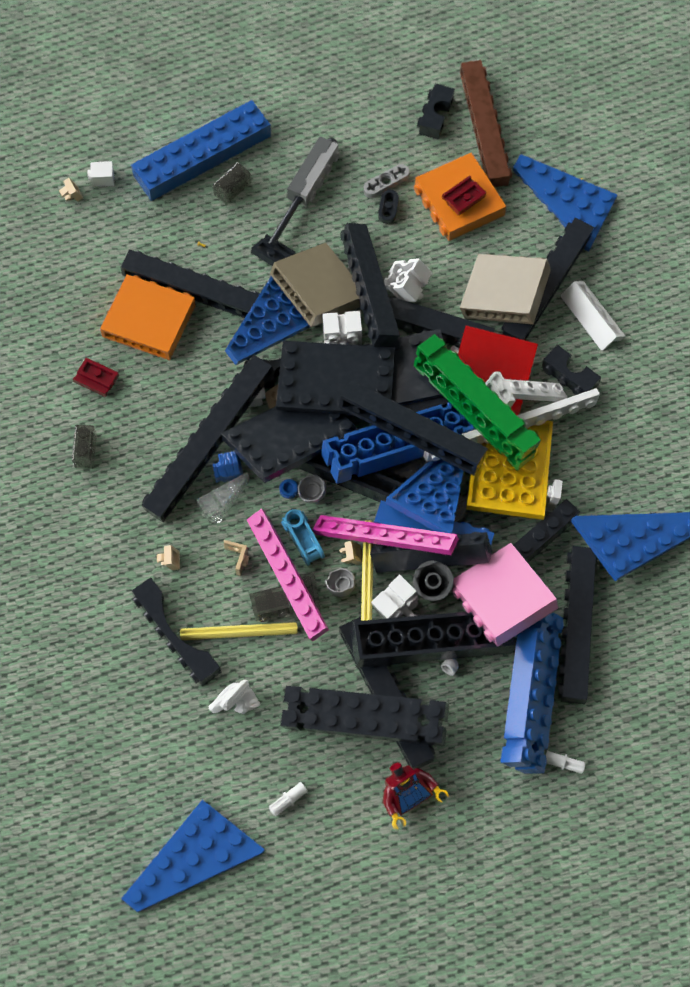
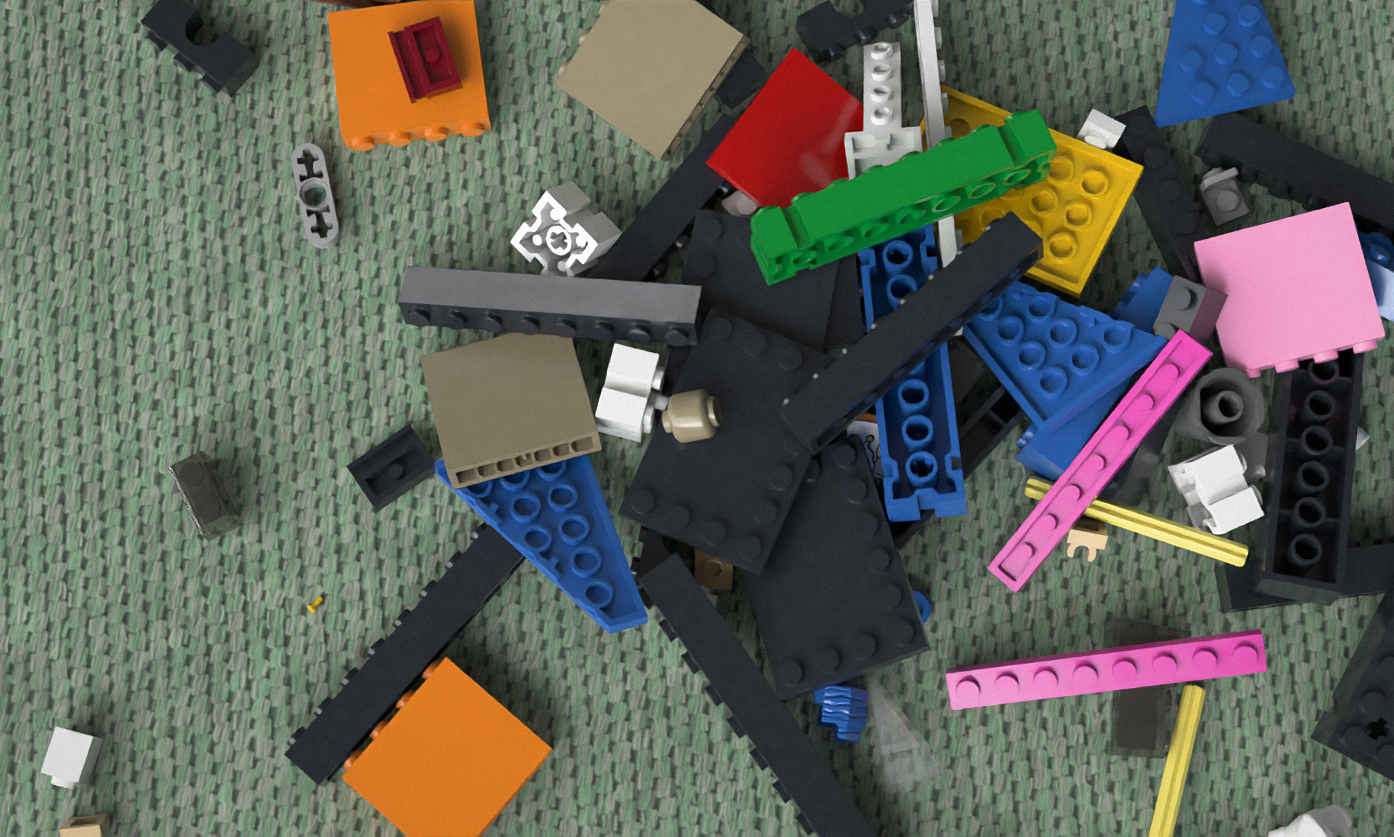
camera: 75 degrees left, 10 degrees up
(201, 150) = (100, 533): blue brick -> none
(243, 558) = (1032, 741): tan bracket -> none
(302, 536) = (1022, 615): dark azure piece -> none
(308, 179) = (258, 342): piece -> none
(312, 489) = (935, 565): light grey hair -> none
(337, 352) = (692, 415): none -> dark tan head
(340, 582) = (1138, 576): light grey hair -> none
(388, 208) = (378, 213): black plate -> none
(552, 569) = (1221, 197): none -> light grey bracket

